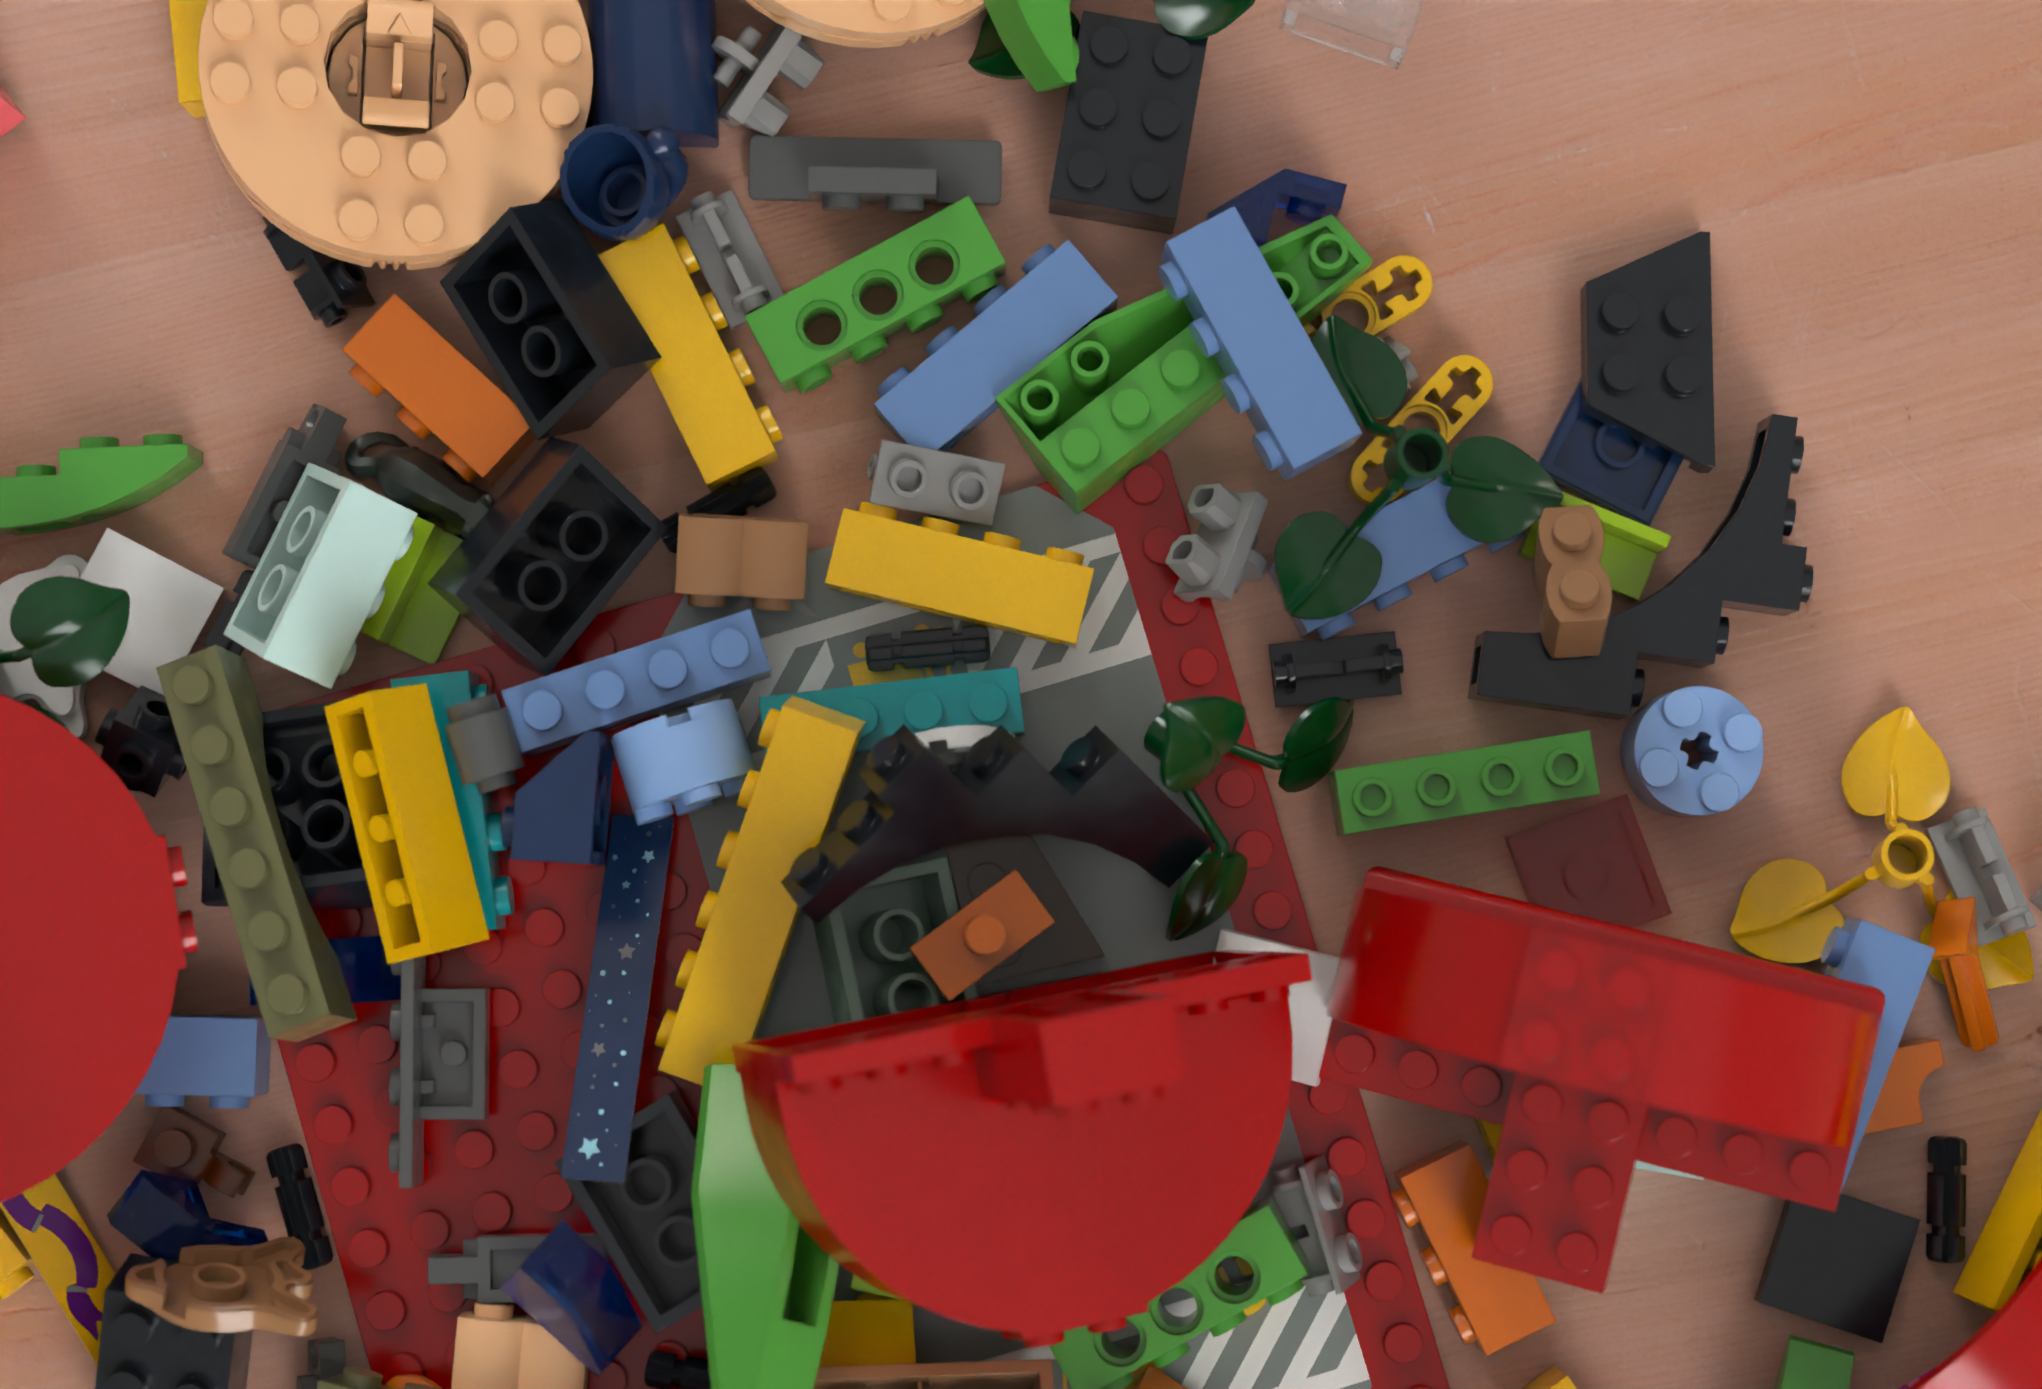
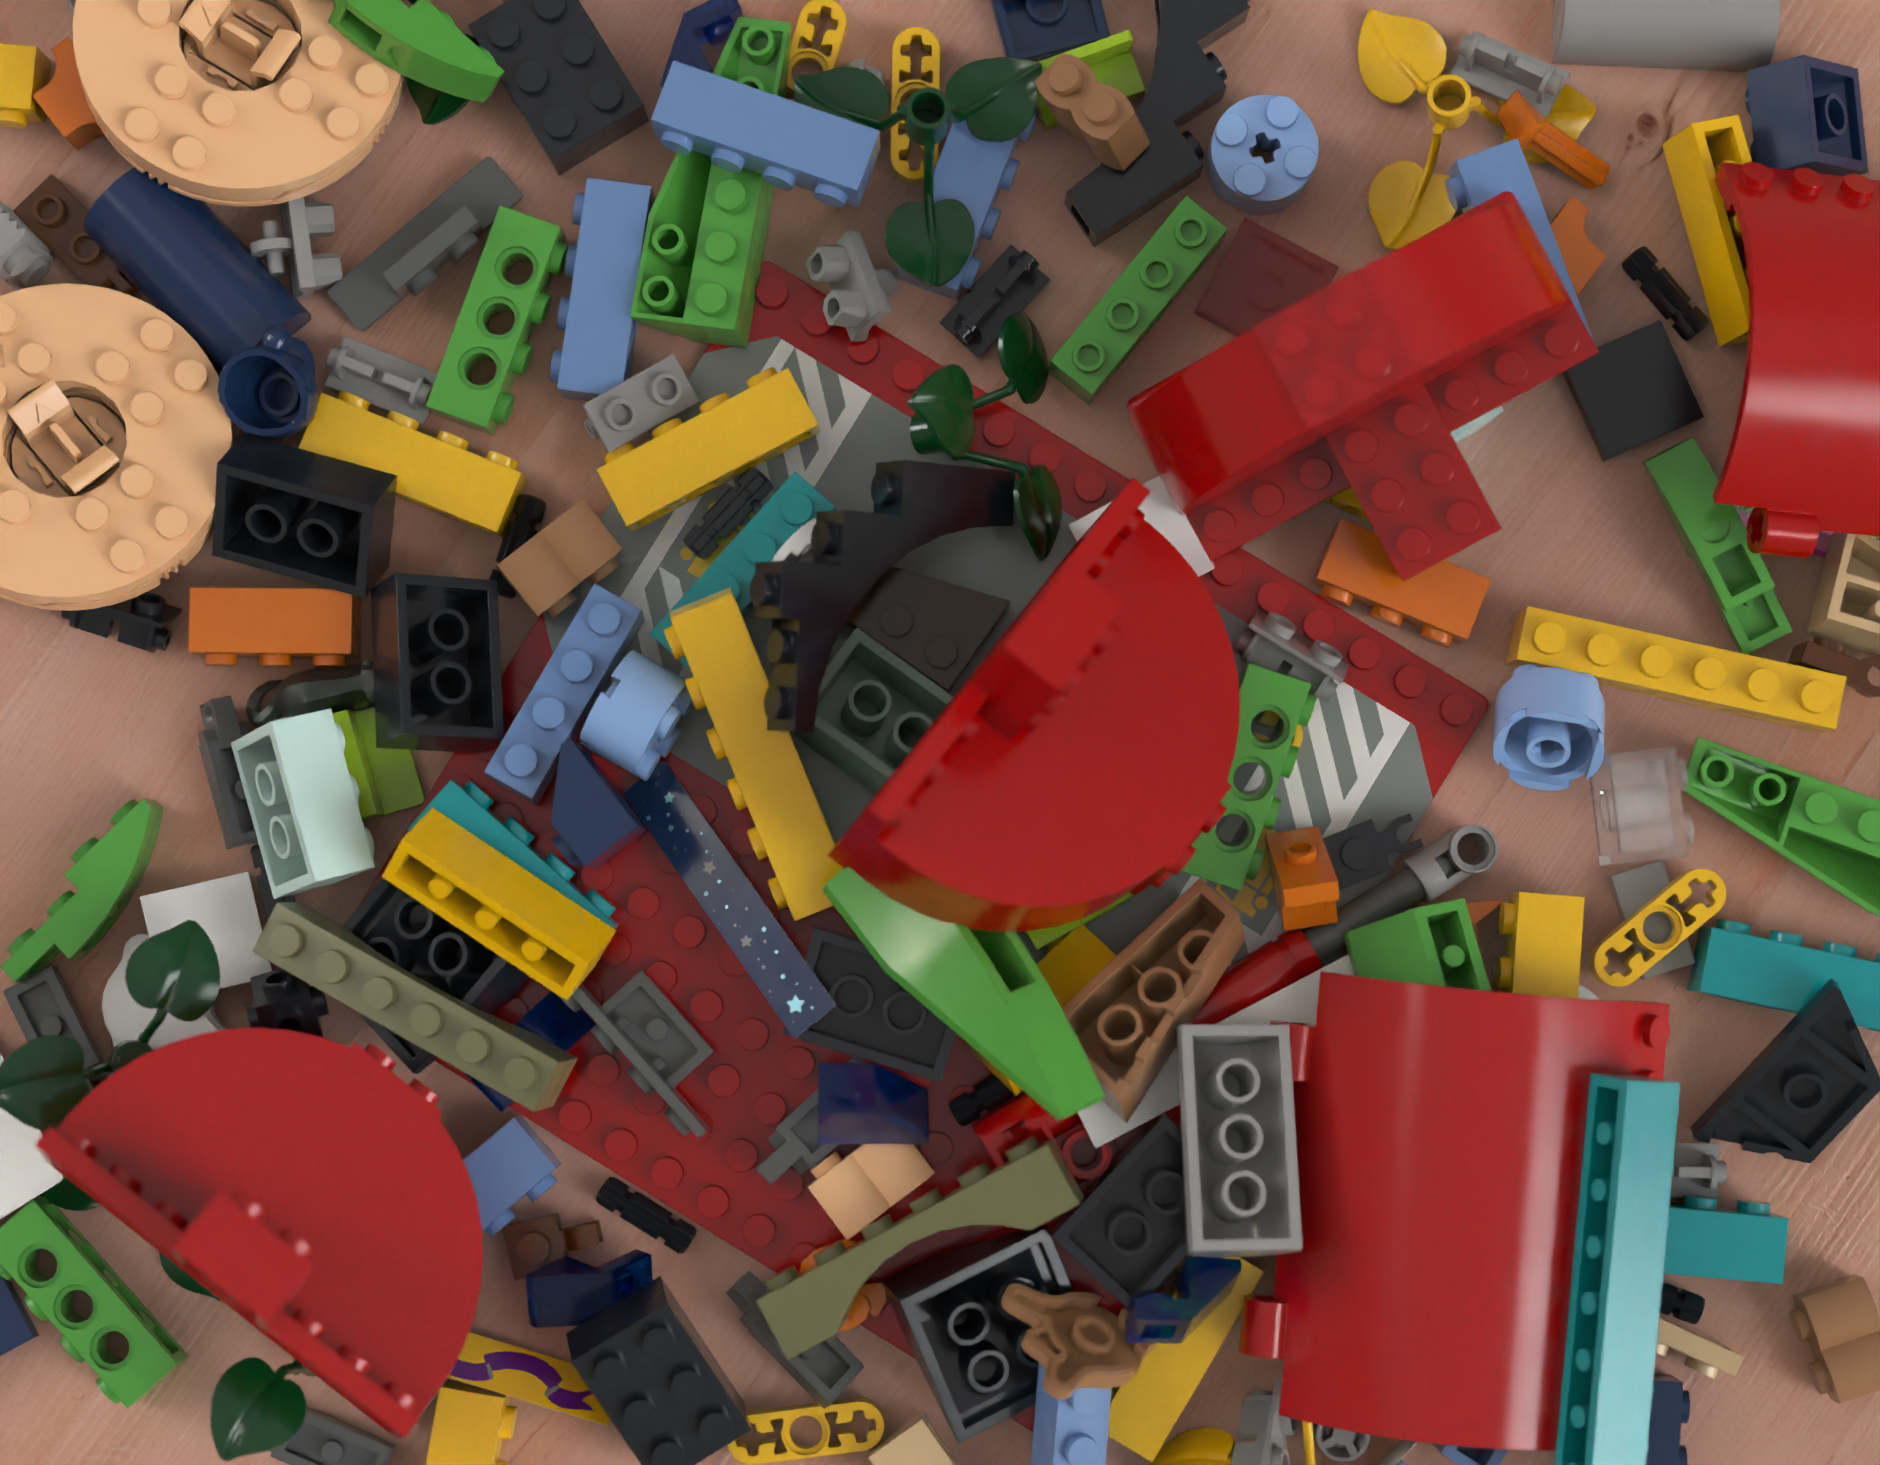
camera: 40 degrees left, 0 degrees up
(230, 1288) = (649, 1292): medium nougat tile -> none
(484, 743) = (503, 813): dark grey brick -> none
(981, 935) = (922, 654): orange tile -> none

